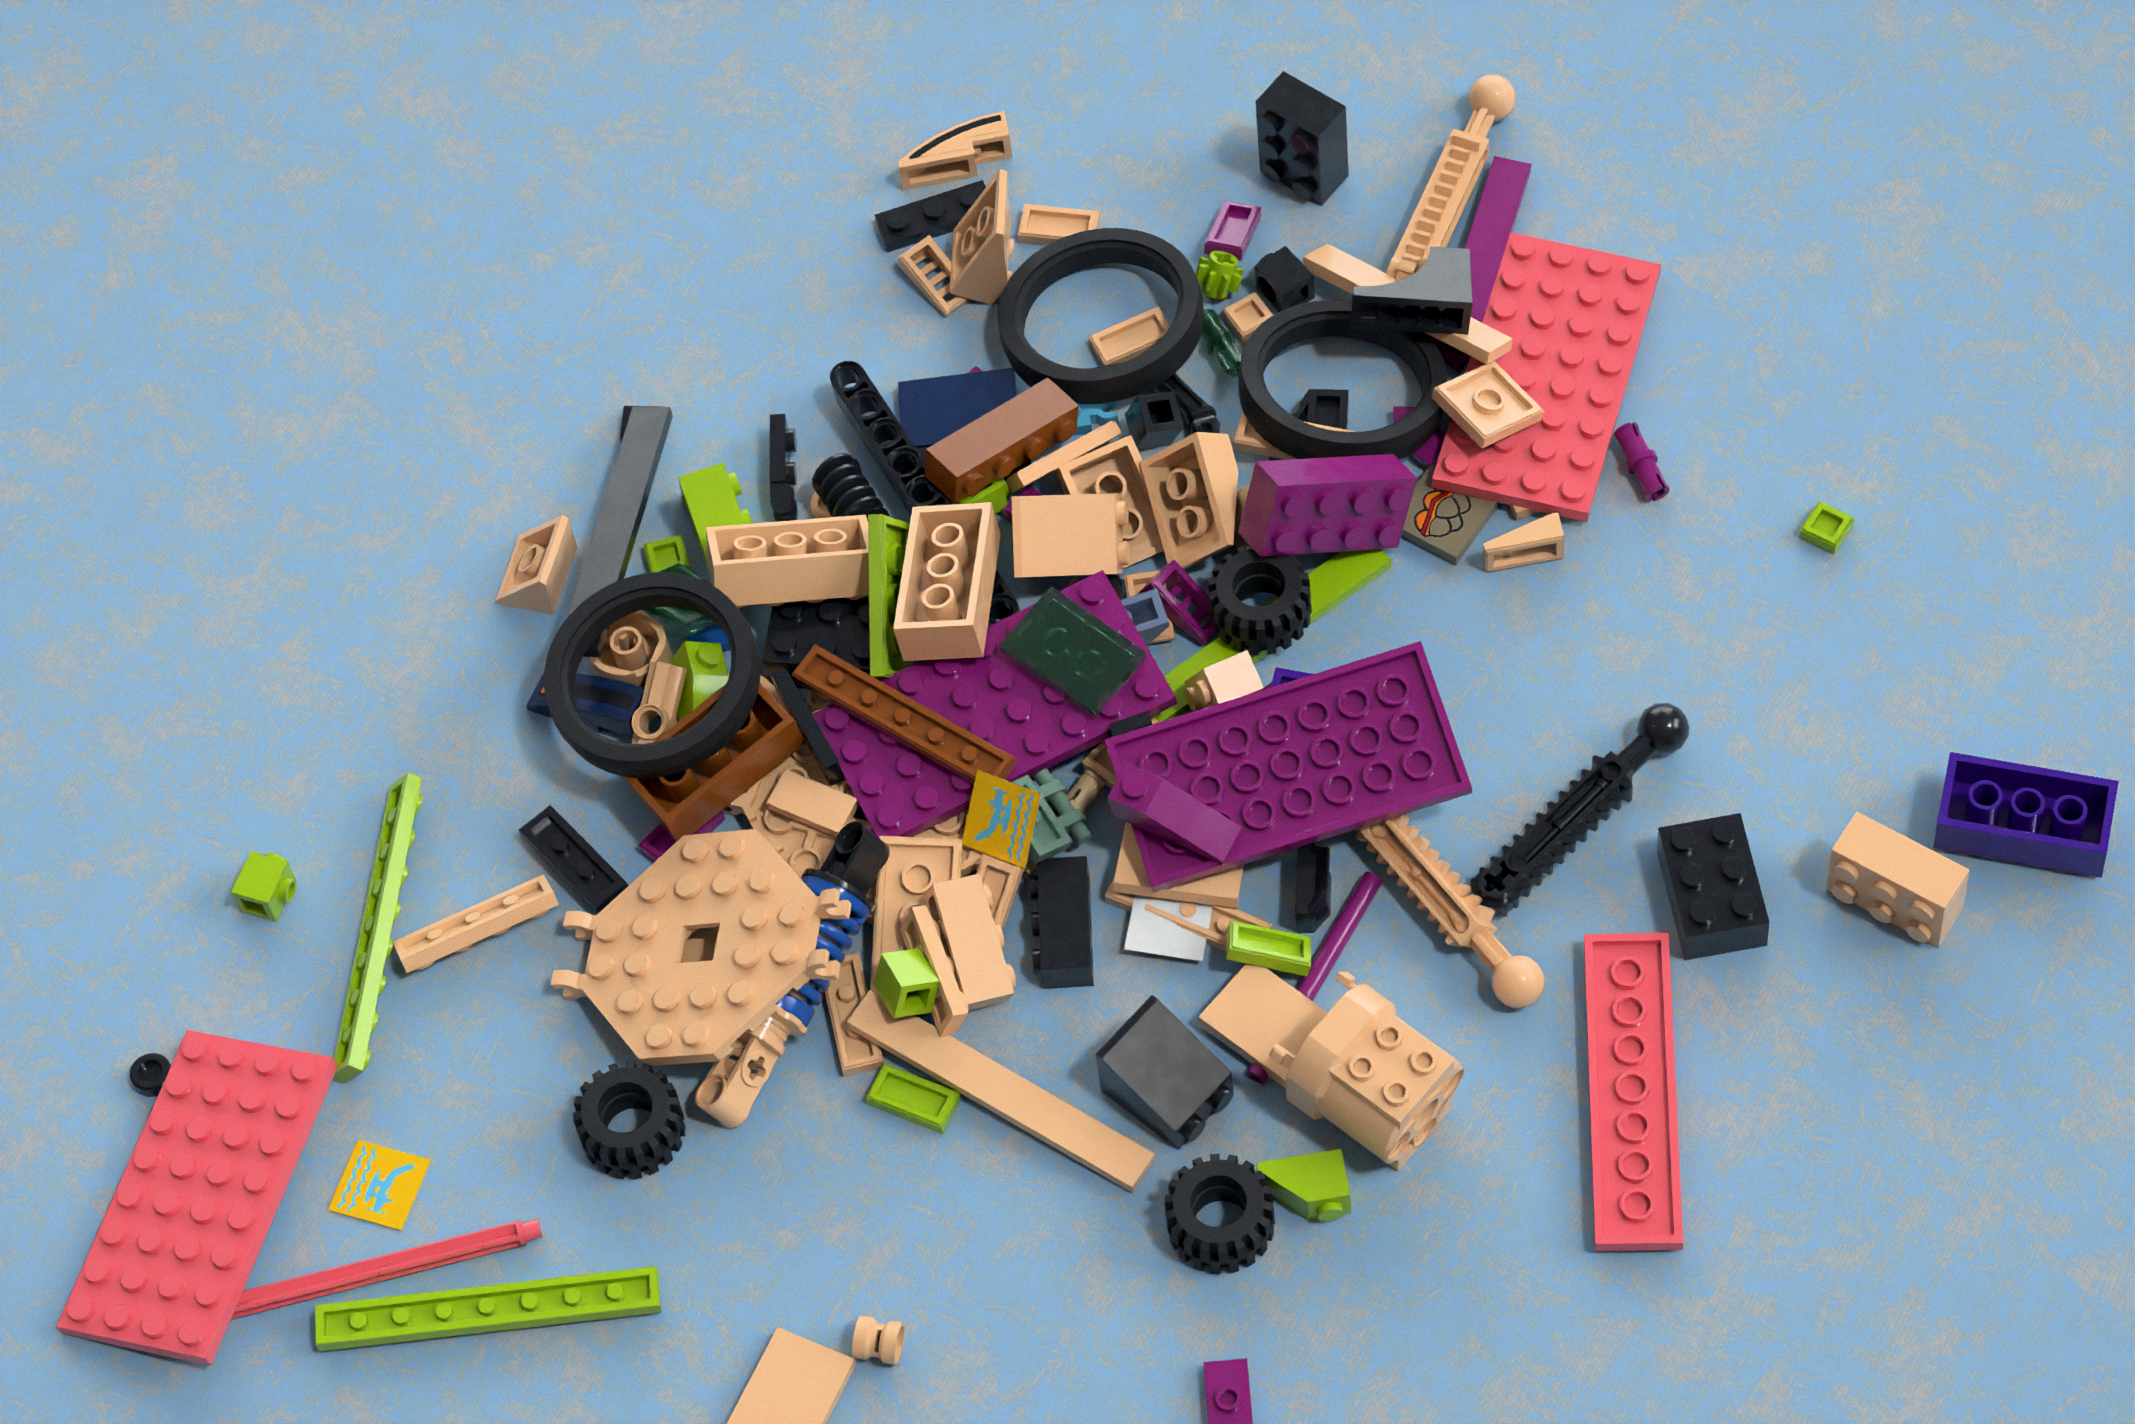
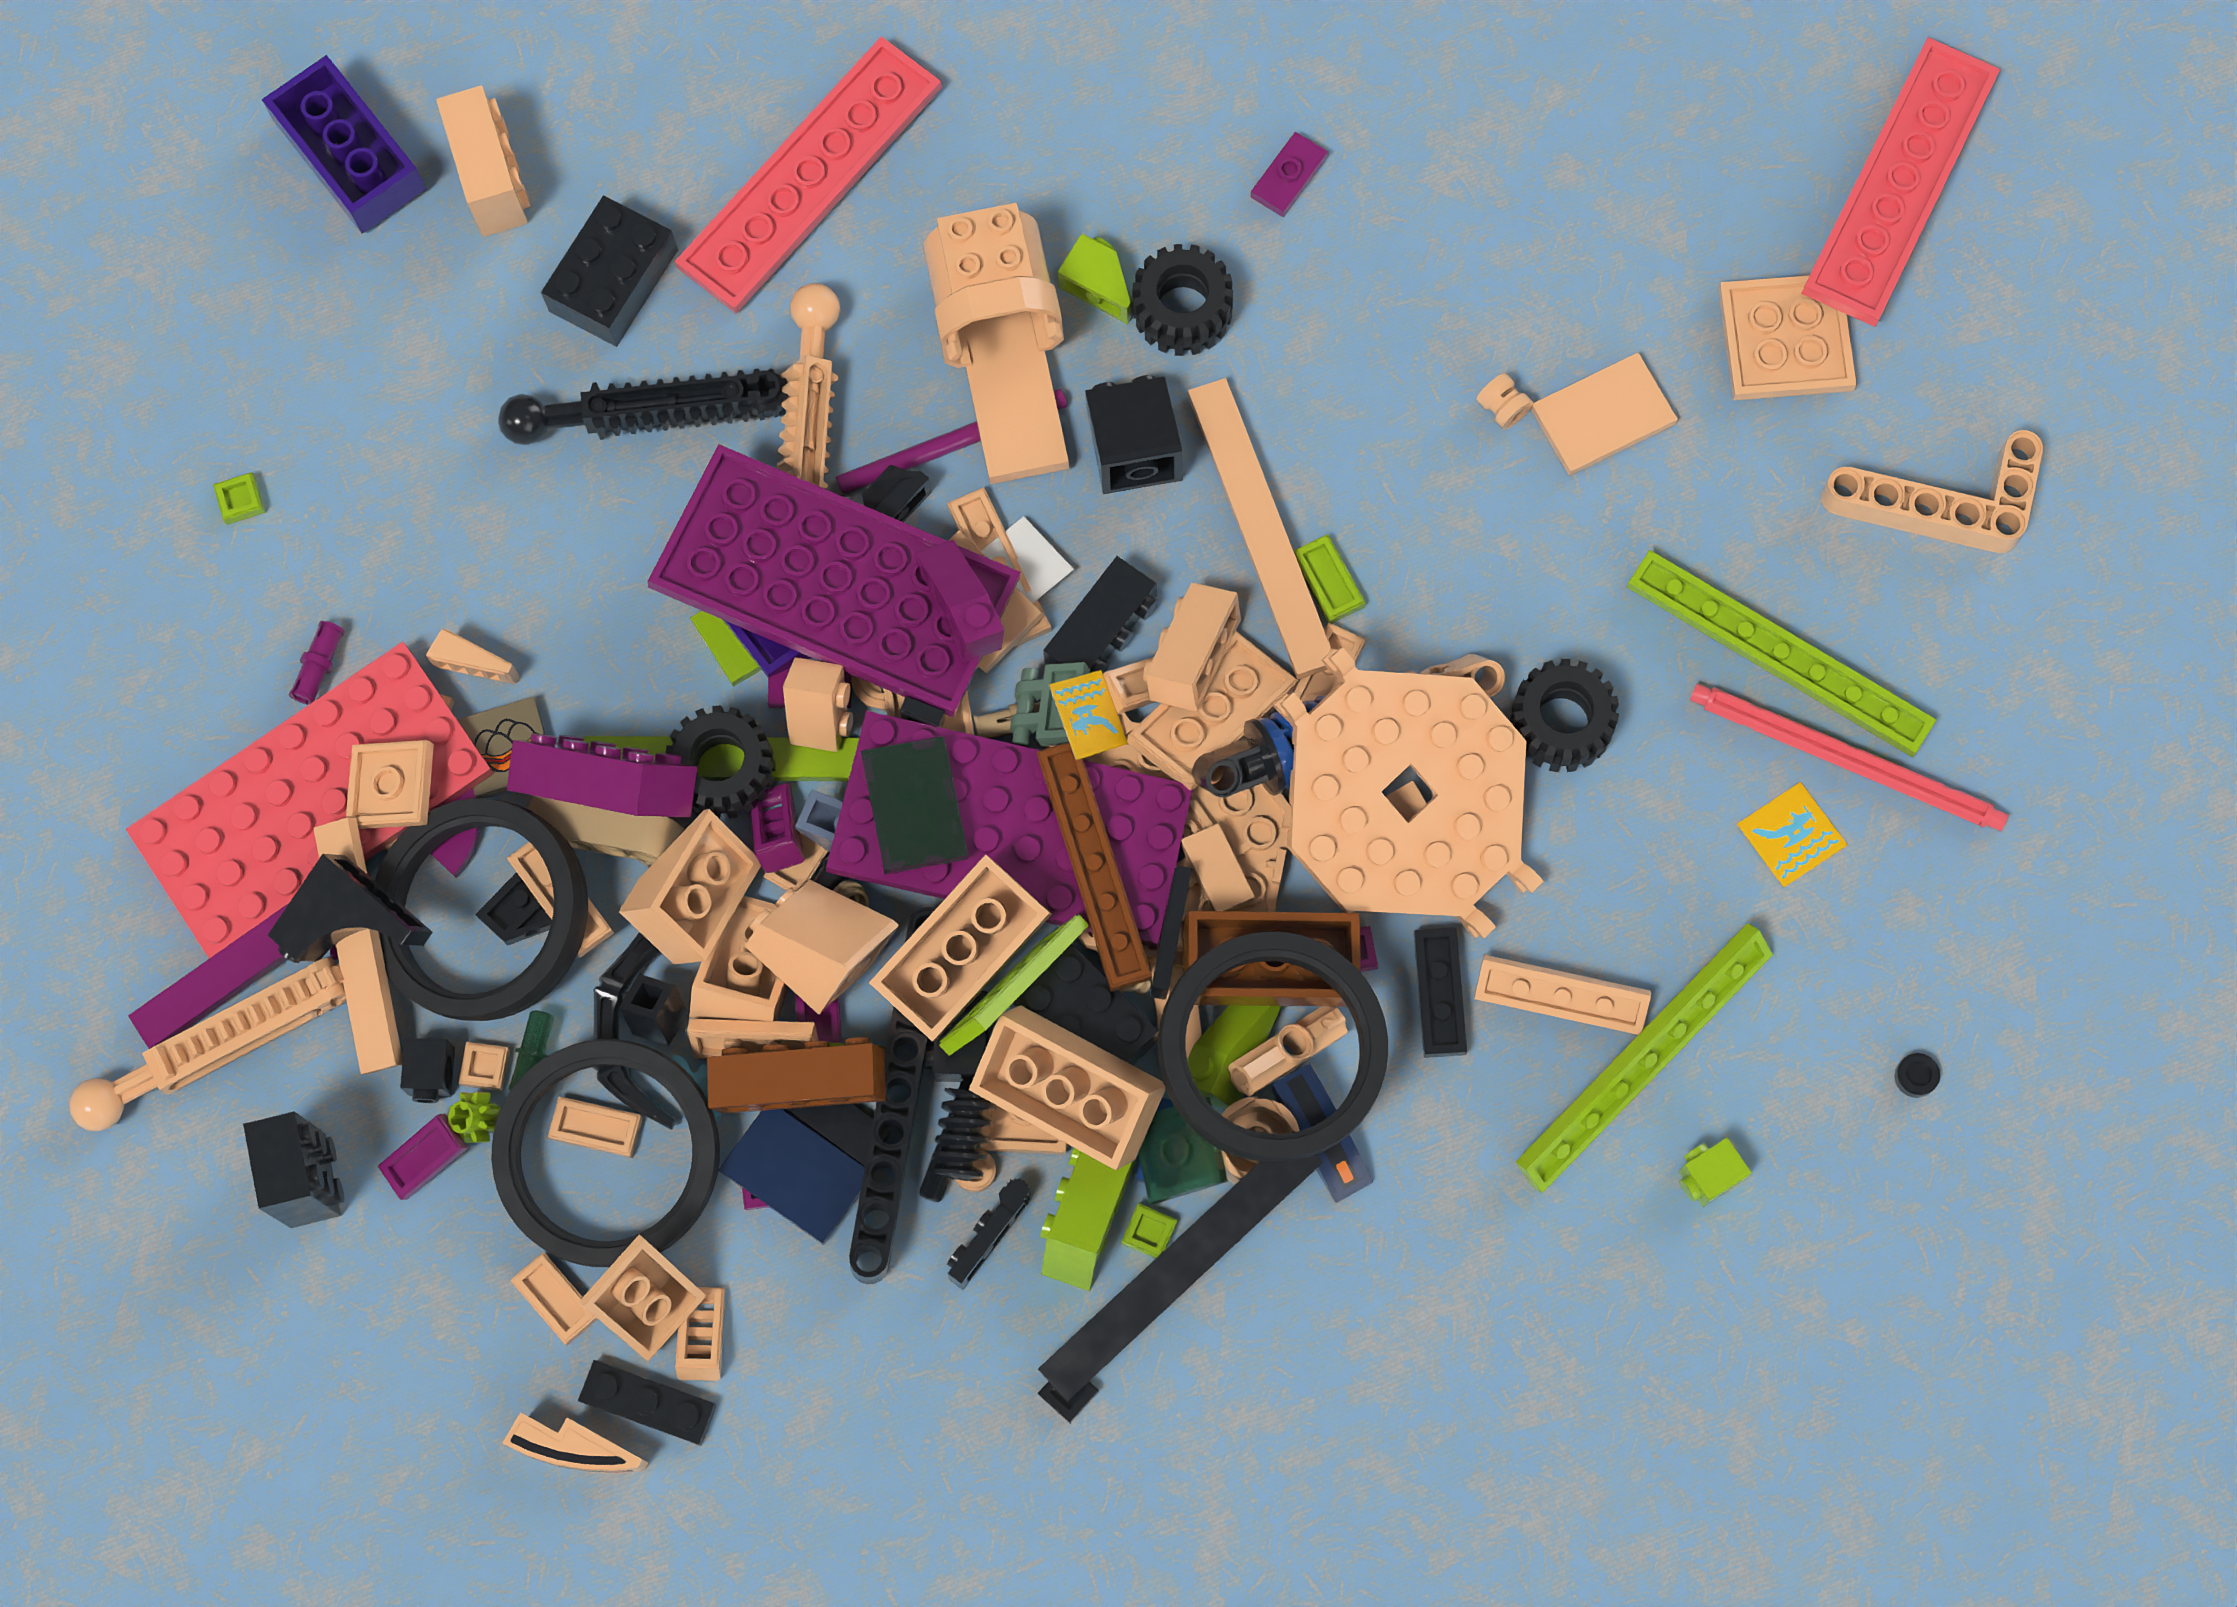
camera: 145 degrees left, 15 degrees up
(198, 1197) = (1948, 925): coral plate -> none
(539, 567) = (1268, 1309): light nougat slope -> none
(906, 983) = (1270, 641): lime brick -> none
(924, 933) = (1240, 637): light nougat plate -> none
(1268, 948) = (970, 475): lime tile -> none

